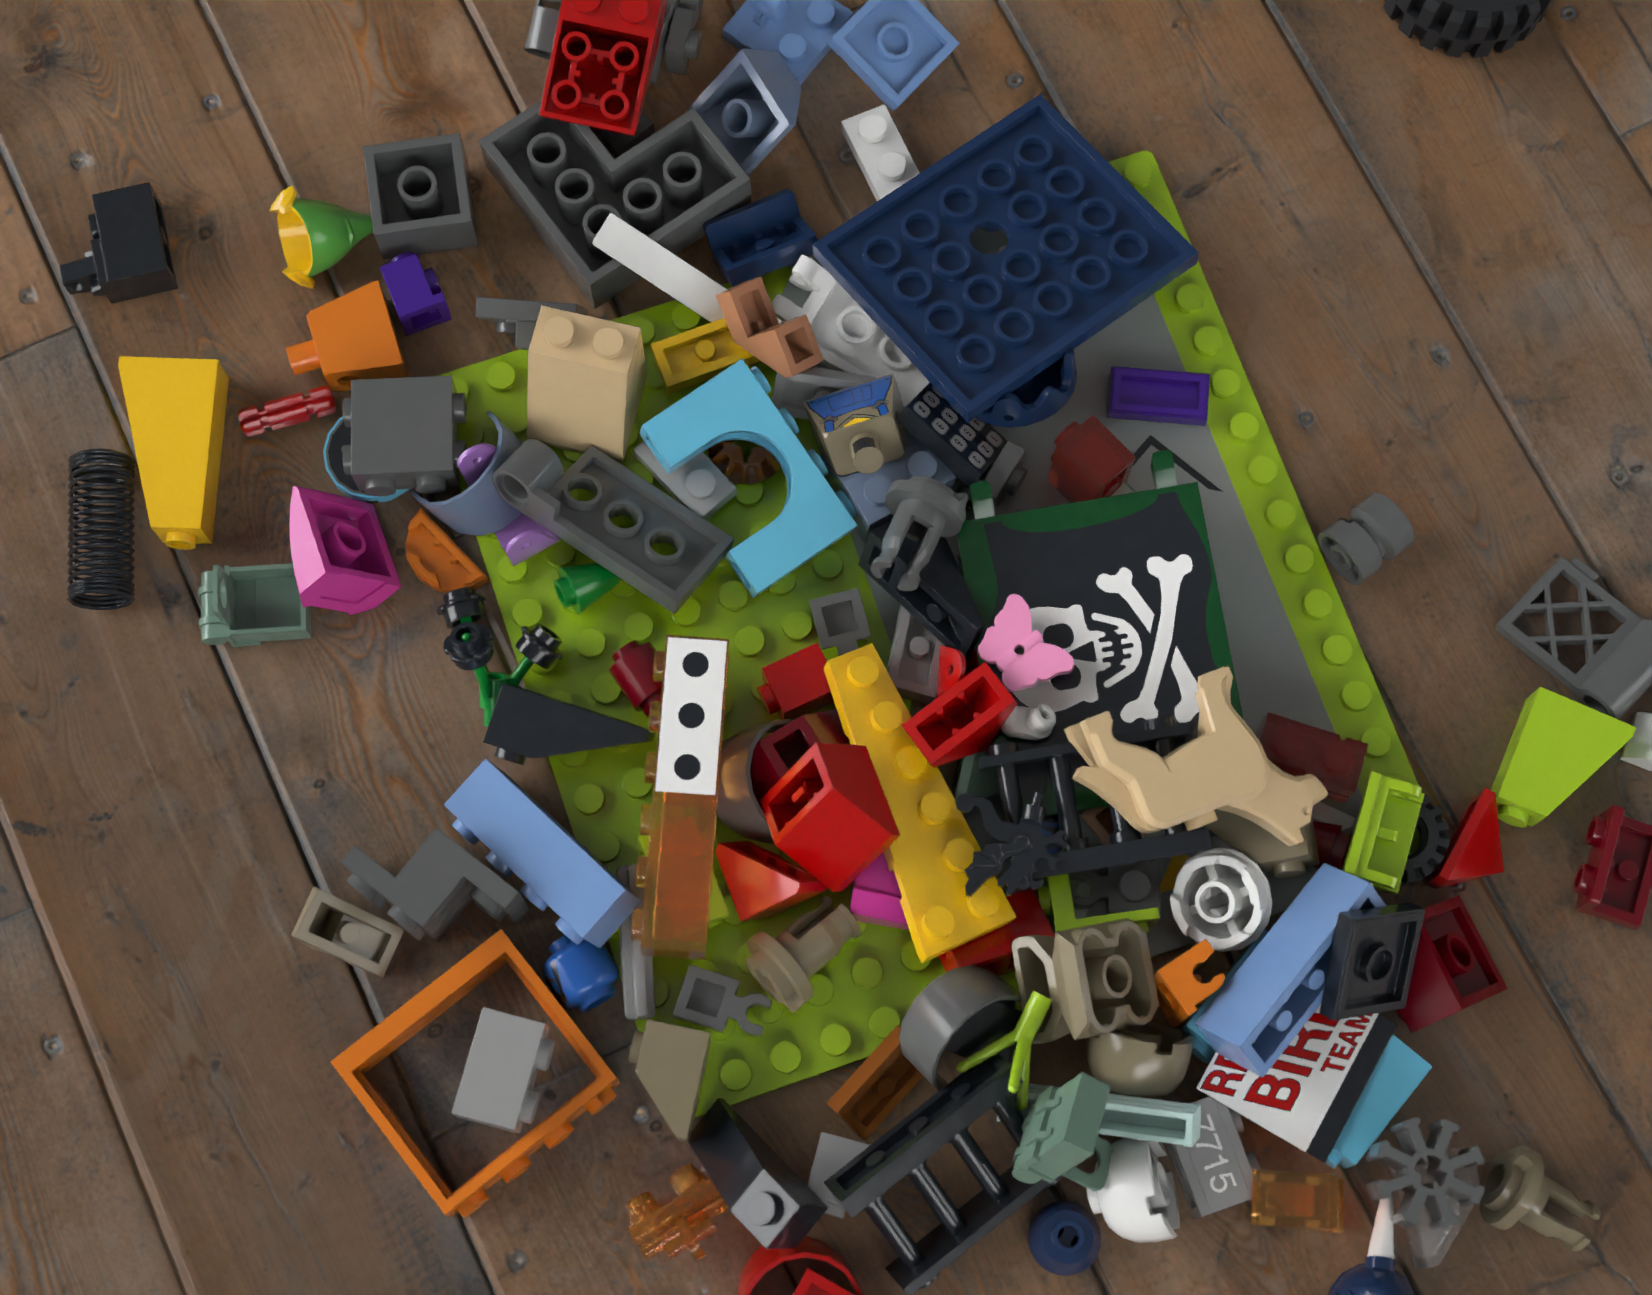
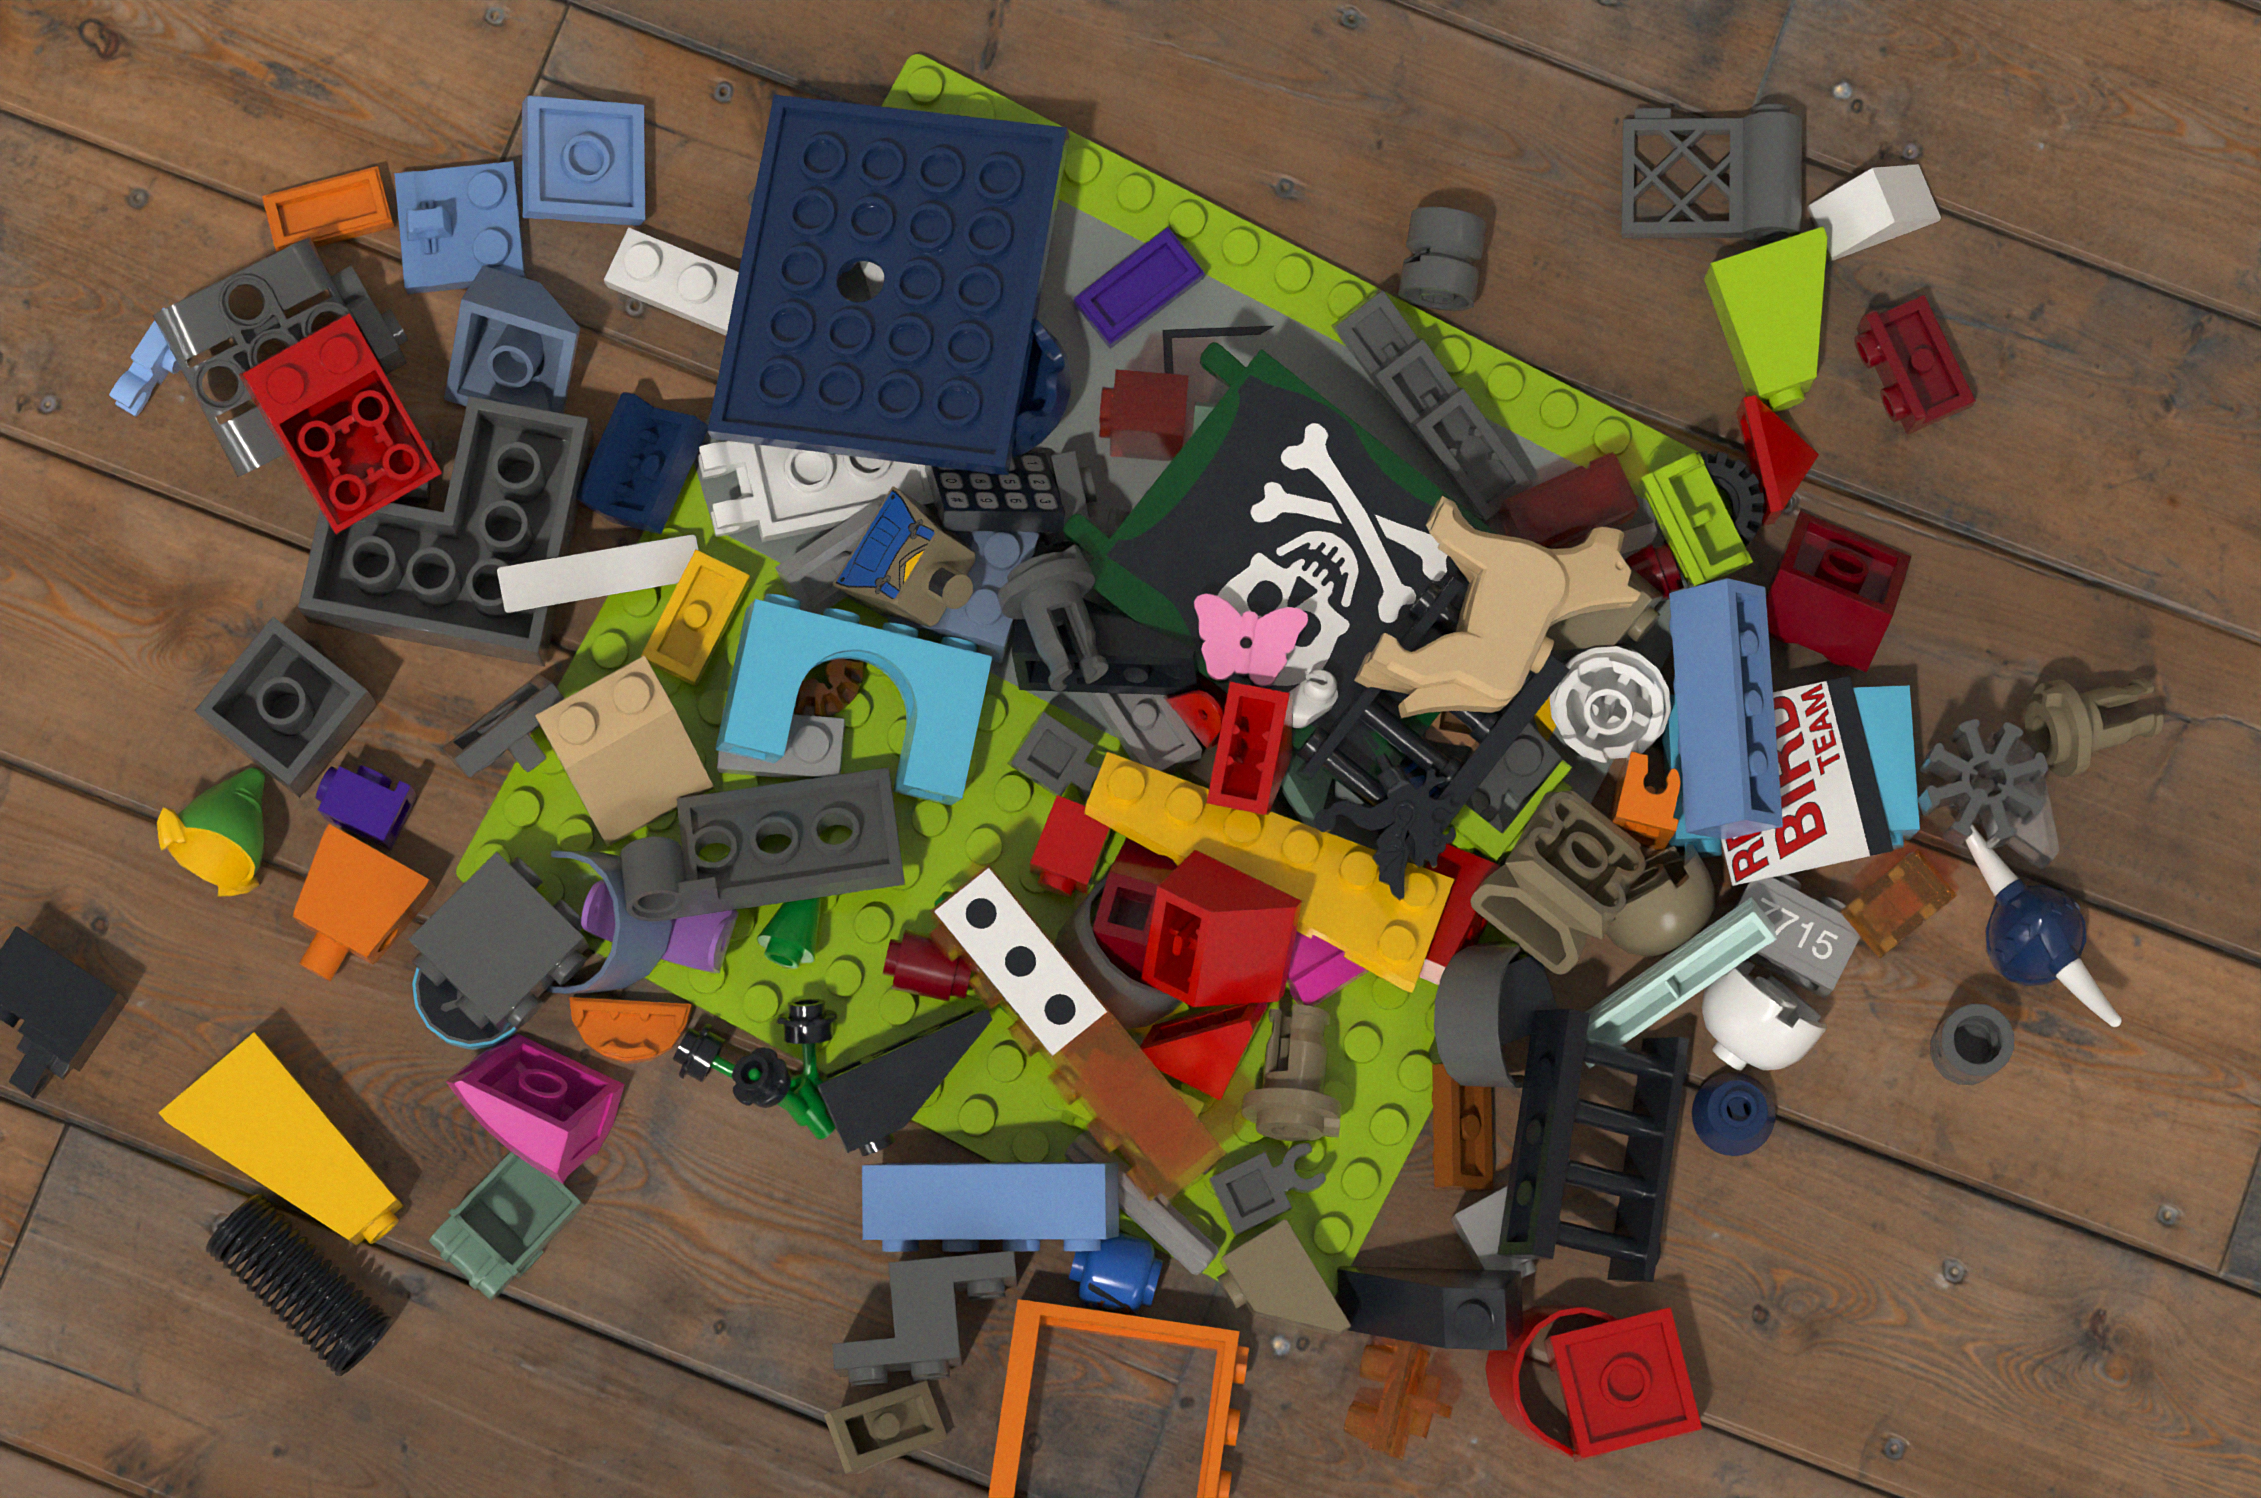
camera: 45 degrees left, 5 degrees up
(287, 411) = (354, 1021): red axle -> none
(503, 1071) = (1141, 1413): light grey brick -> none
(783, 346) = (762, 551): nougat slope -> none
(1022, 1034) = (1554, 974): lime plant -> none
(1063, 1133) = (1662, 1026): sand green piece -> none
(1277, 619) = (1432, 404): none -> dark grey slope
(1372, 960) = (1784, 642): black tile -> none

